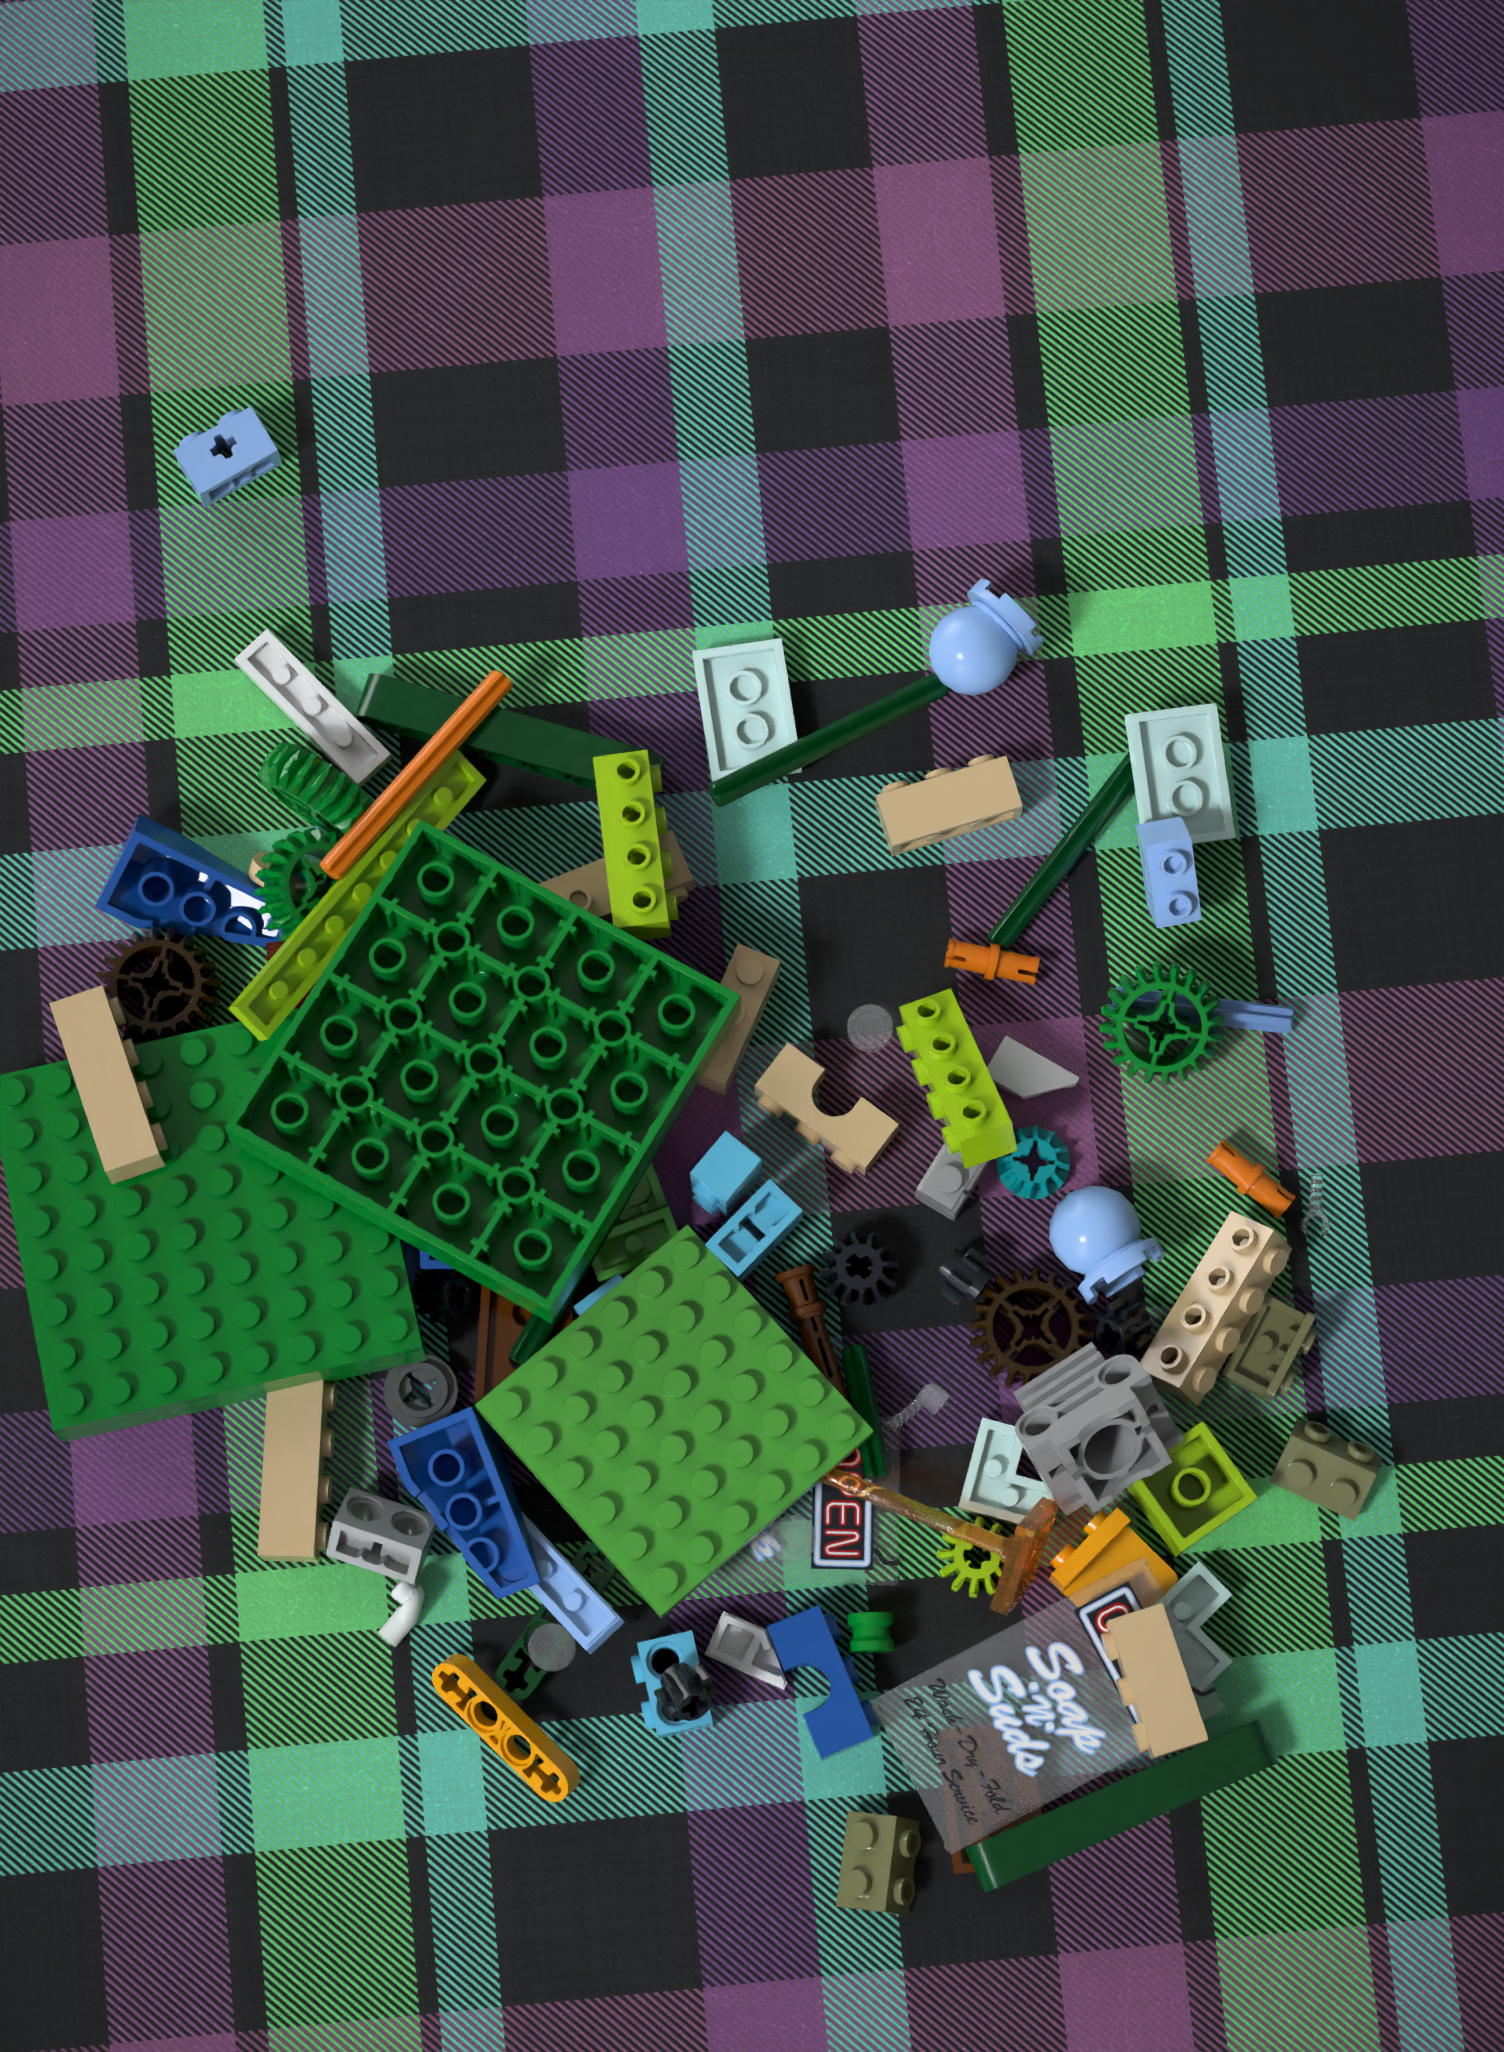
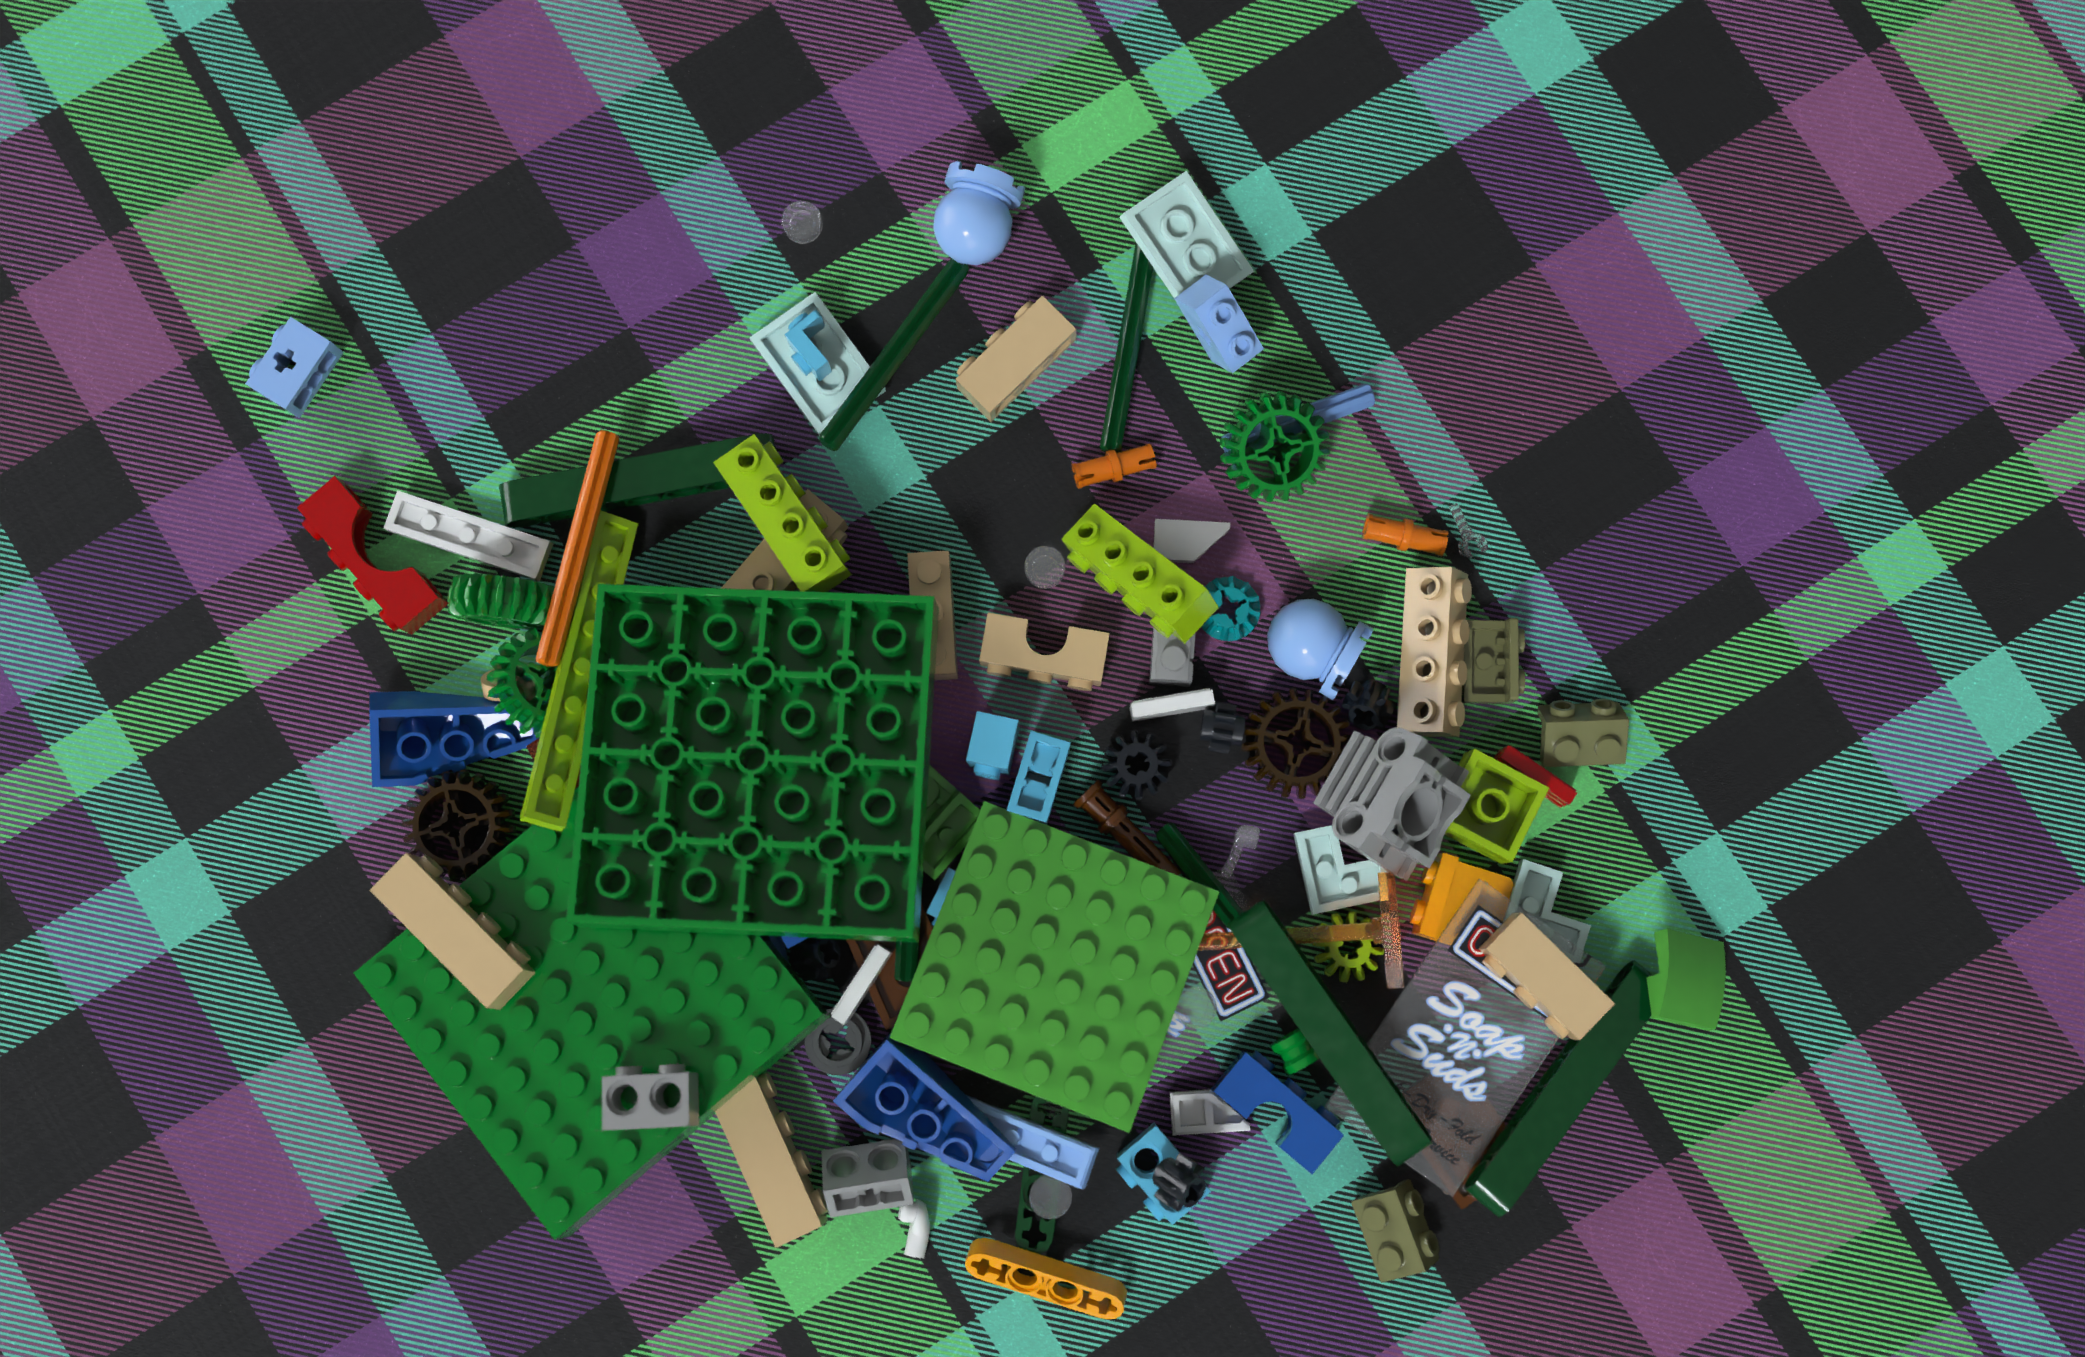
camera: 25 degrees left, 5 degrees up
(197, 629) = (341, 521): none -> red arch
(210, 1349) = (650, 1106): none -> light grey brick
(474, 1342) = (861, 984): none -> white tile
(740, 699) = (807, 355): none -> medium azure bracket
(805, 561) = (802, 222): none -> clear tile
(911, 1625) = (1330, 1032): none -> dark green beam
(924, 1228) = (1172, 704): none -> white tile
(1266, 1506) = (1559, 791): none -> red tile
(1300, 1763) = (1688, 981): none -> bright green slope

